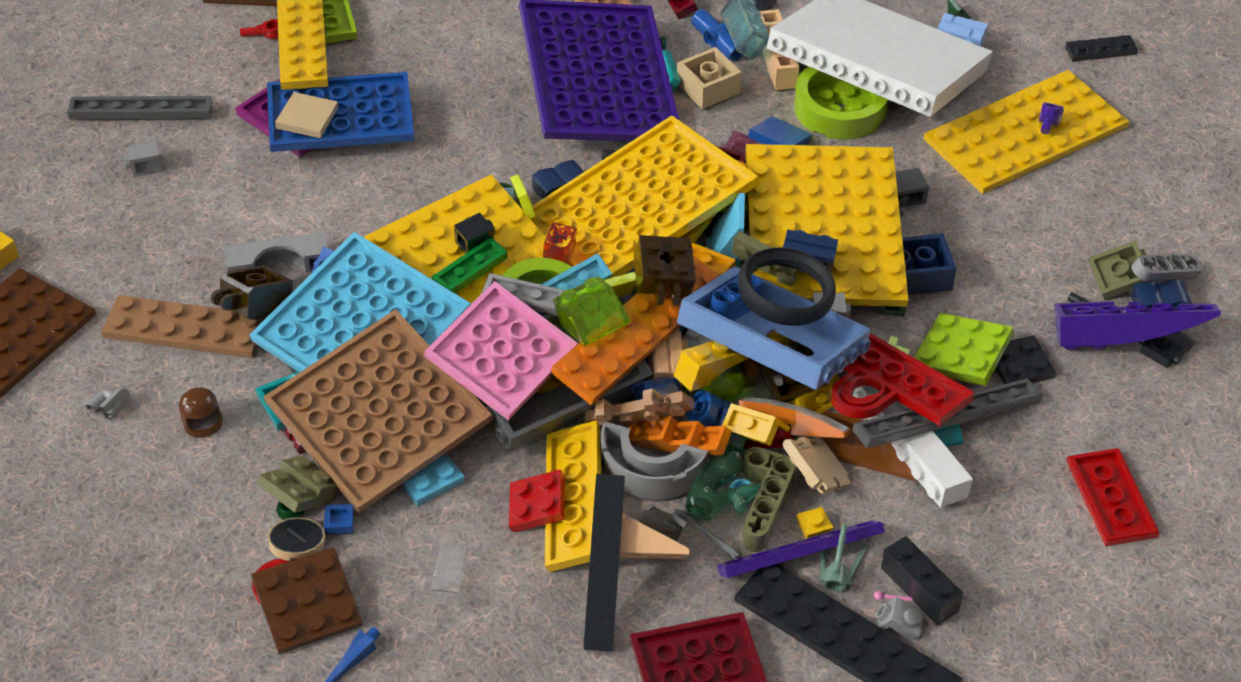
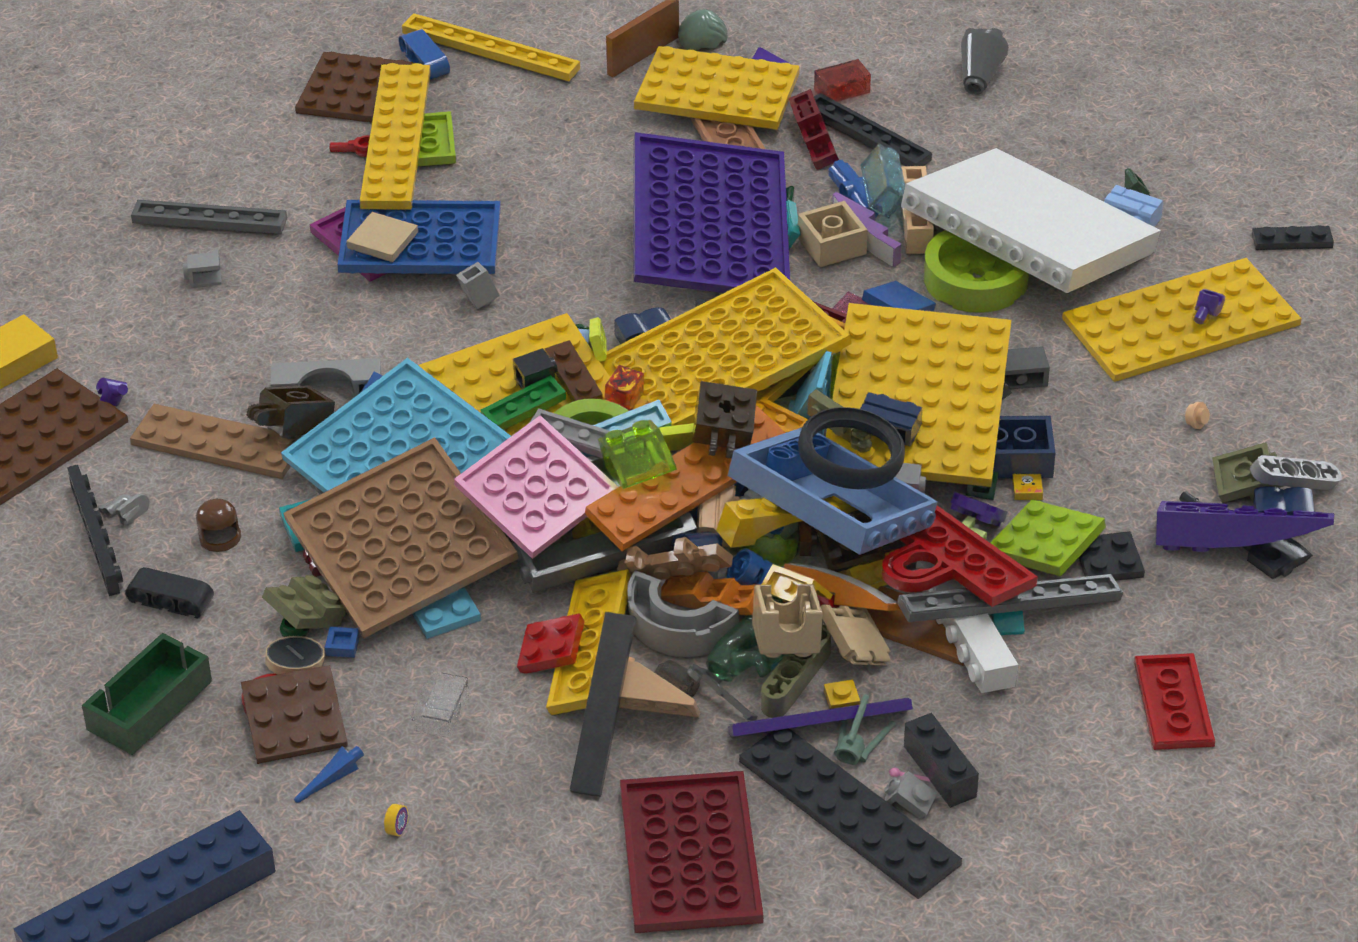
camera: 10 degrees right, 5 degrees down
(76, 286) = (111, 390): none -> dark purple piece
(87, 436) = (98, 537): none -> black plate
(160, 595) = (147, 693): none -> dark green piece
(164, 484) = (169, 591): none -> black beam
(401, 153) = (477, 285): none -> light grey brick
(510, 233) = (573, 372): none -> reddish brown plate
(750, 82) = (877, 235): none -> medium lavender slope
(760, 465) = (787, 626): none -> tan piece
(906, 330) = (985, 512): none -> dark purple plate
(932, 300) = (1027, 486): none -> yellow tile
(1064, 219) = (1197, 415): none -> light nougat plate

